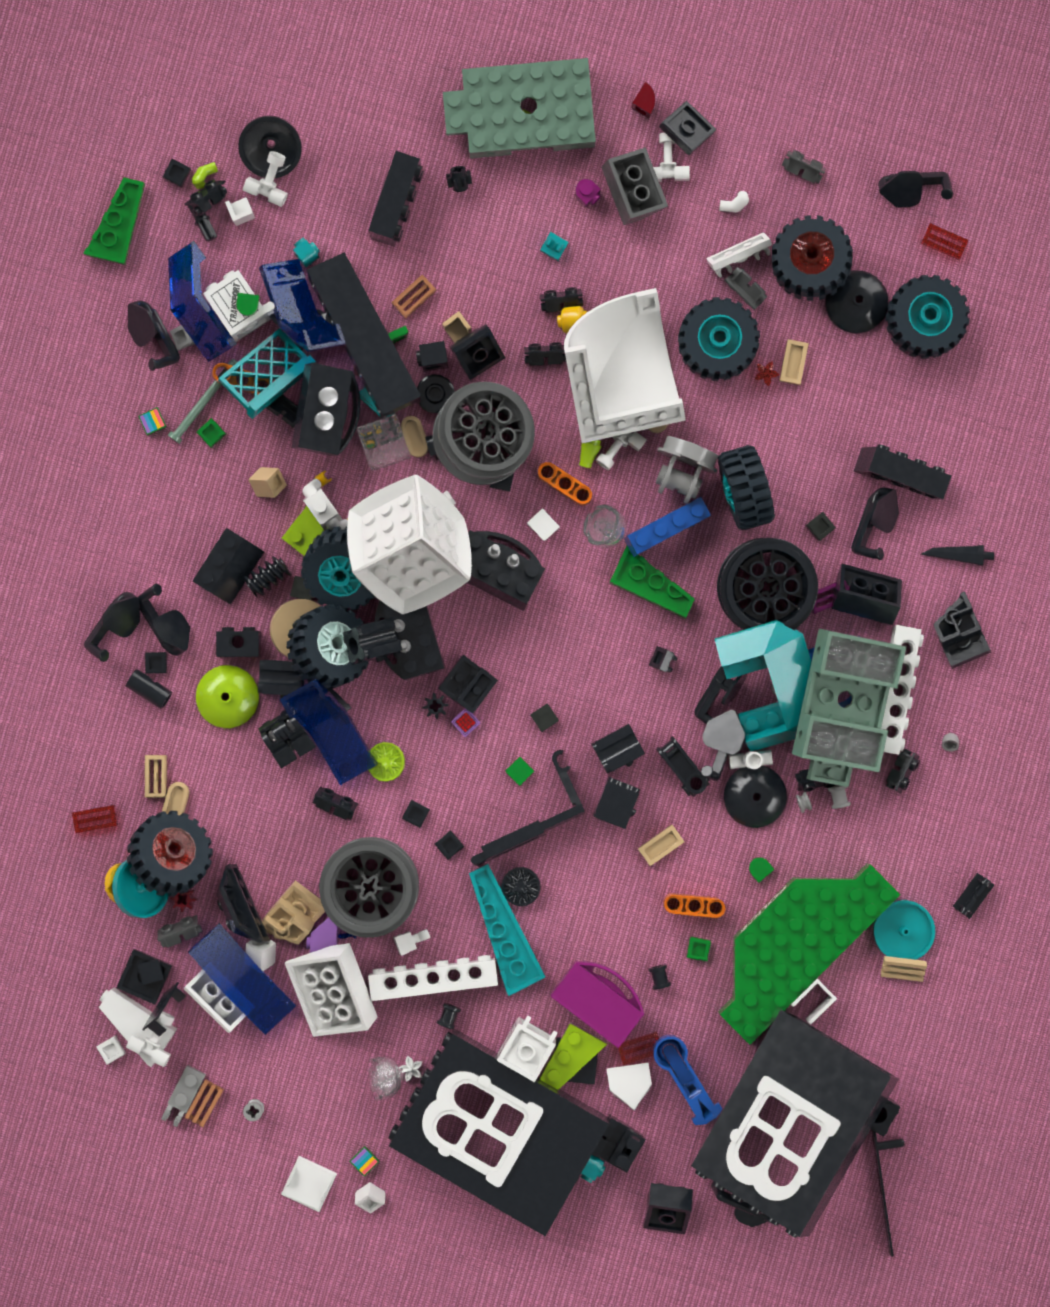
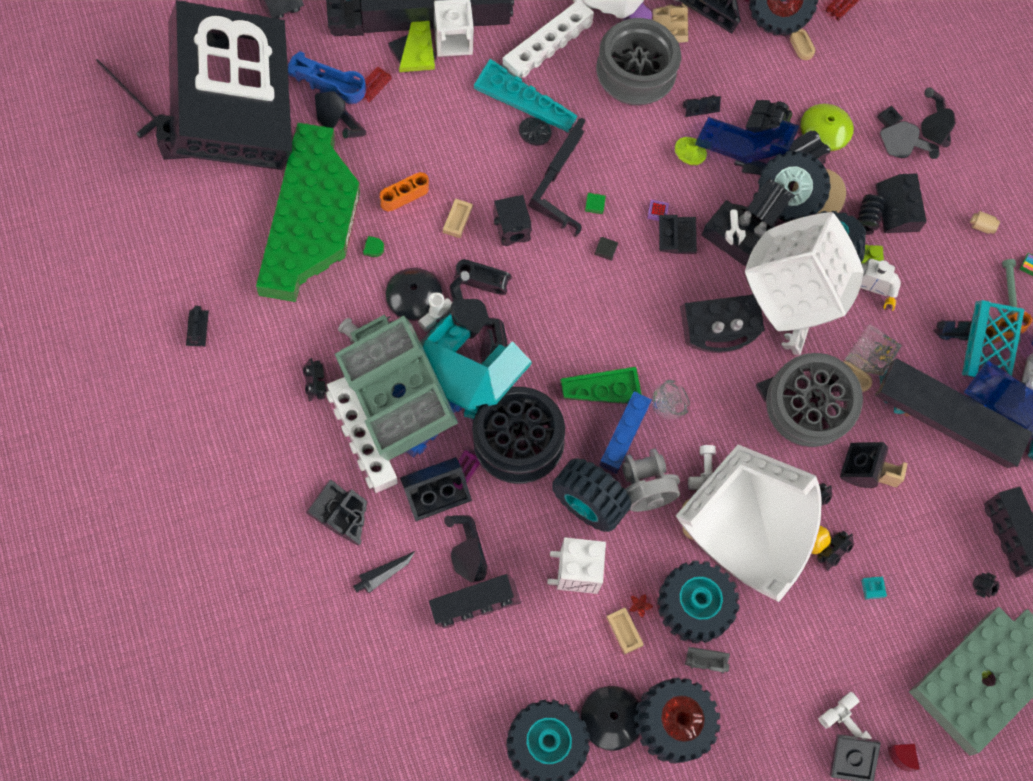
camera: 135 degrees right, 20 degrees down
(147, 689) = (880, 96): black pin -> none
(156, 776) = (826, 52): tan tile -> none
(163, 491) = (984, 222): none -> tan brick
(211, 433) = (988, 284): green tile -> none
(251, 644) = (857, 153): black brick -> none
(267, 482) = (924, 275): tan panel -> none
(324, 410) = (934, 340): black piece -> none
(398, 334) = (928, 436): green tile -> none
(401, 308) = (945, 492): nougat tile -> none
(406, 941) = (583, 50): white piece -> none
(415, 813) = (643, 133): black tile -> none
(424, 642) = (734, 229): none -> white bar
(432, 356) = (894, 433): black brick -> none
(434, 392) = (870, 418): black wheel -> none
(440, 710) = (687, 205): black gear -> none
(448, 1016) = (520, 27): black bush -> none
(449, 845) = (604, 128): black tile -> none
(543, 524) = (714, 375): white panel -> none
(559, 474) = (730, 409): orange beam -> none
(587, 192) = (886, 647): magenta plate -> none
(589, 452) = (722, 448): lime cone -> none
(599, 1001) = (425, 89): magenta piece -> none
(618, 748) = (539, 256): black piece -> none
(630, 1083) = (364, 57): white slope -> none
(634, 186) = (857, 677): dark grey slope -> none
(659, 977) = (394, 133): black bush -> none
(662, 659) = (555, 340): black tile -> none
(698, 948) = (379, 169): green tile -> none
(701, 1041) = (331, 108): none -> black piece
(736, 204) = (766, 726): white arm -> none
(739, 253) = (734, 685): white plate -> none
(797, 437) = (580, 565): none -> white container
(803, 802) = (375, 309): light grey bush -> none
(820, 526) = (508, 518): pearl dark grey tile -> none
(822, 1007) = (260, 183): white piece -> none
(901, 969) = (217, 244): tan tile -> none
(904, 930) = (234, 272): teal piece -> none
(950, 742) = (291, 424): light grey hinge -> none

